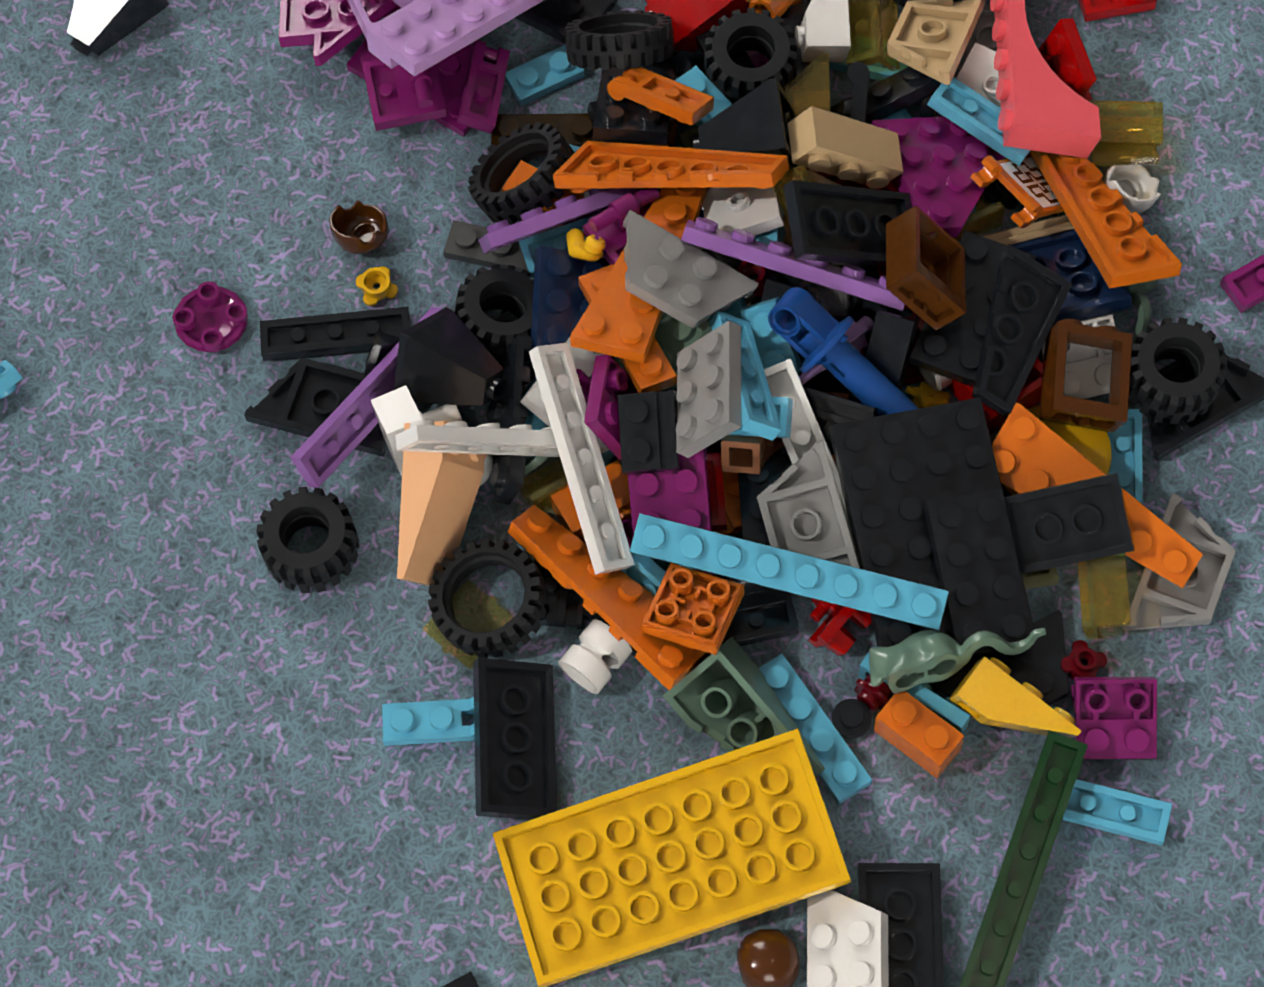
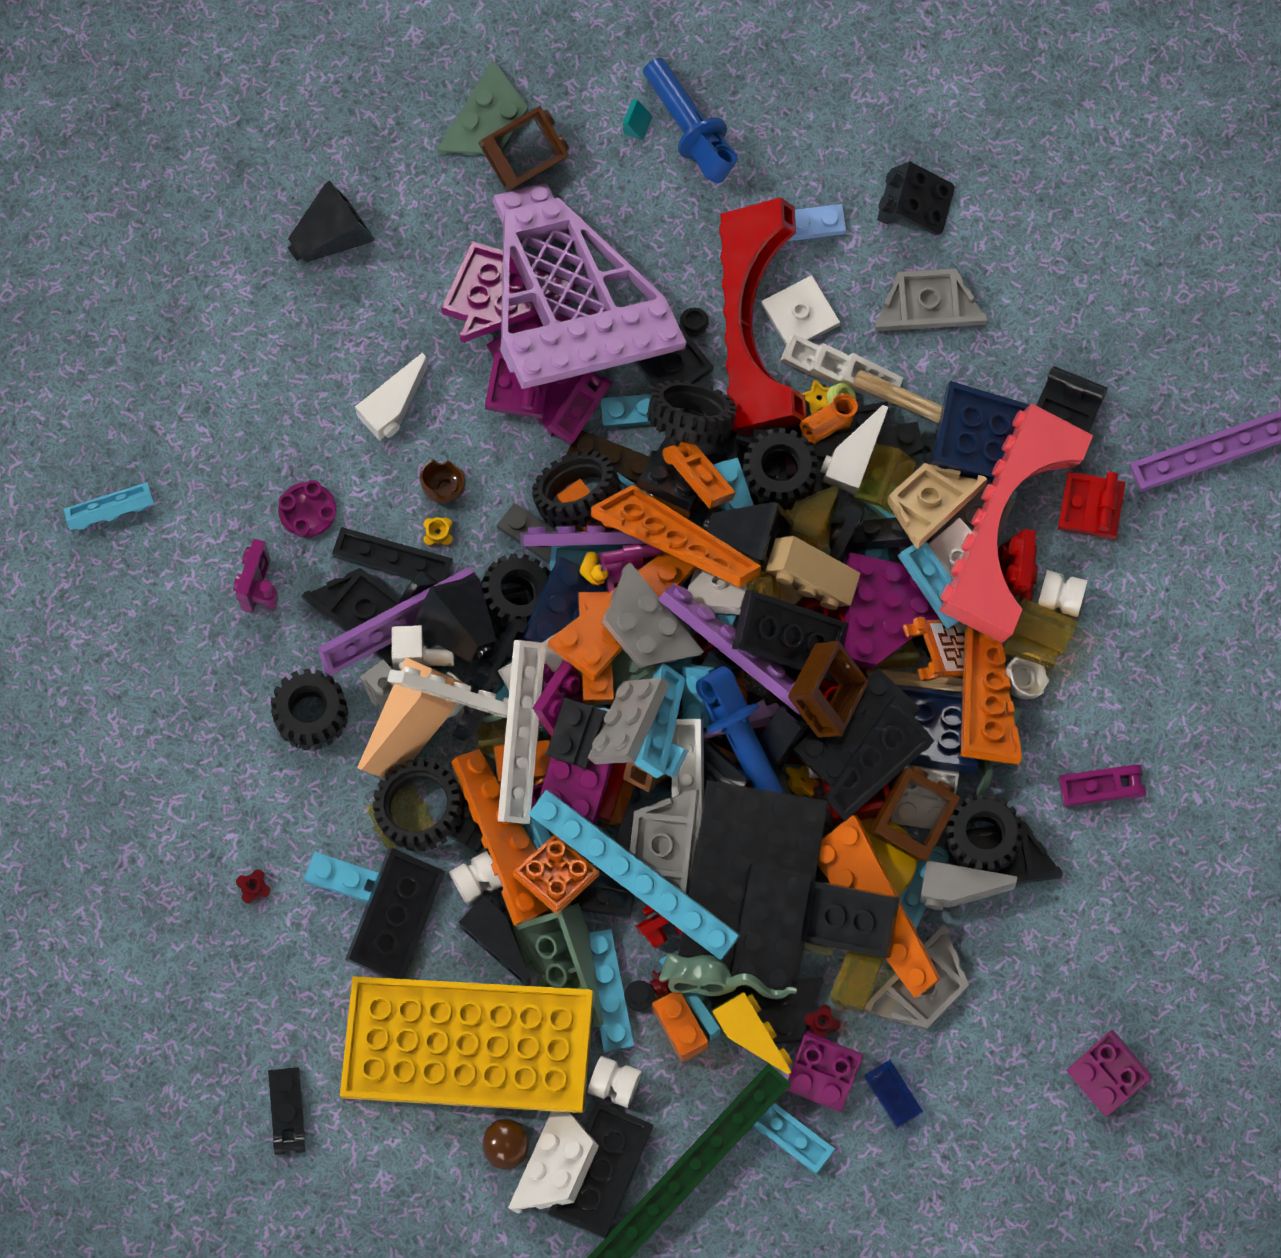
camera: 20 degrees right, 5 degrees up
(177, 421) = (250, 585): none -> magenta plate
(259, 168) = (389, 403): none -> white slope
(323, 786) = (256, 878): none -> dark red plate
(383, 475) = (376, 684): none -> light grey hinge
(644, 714) = (492, 931): none -> black slope
(870, 831) = (614, 1082): none -> white wheel
(1131, 82) = (1062, 593): none -> white wheel
(1165, 441) = (955, 885): none -> light grey slope
(1207, 712) = (893, 1094): none -> clear blue plate

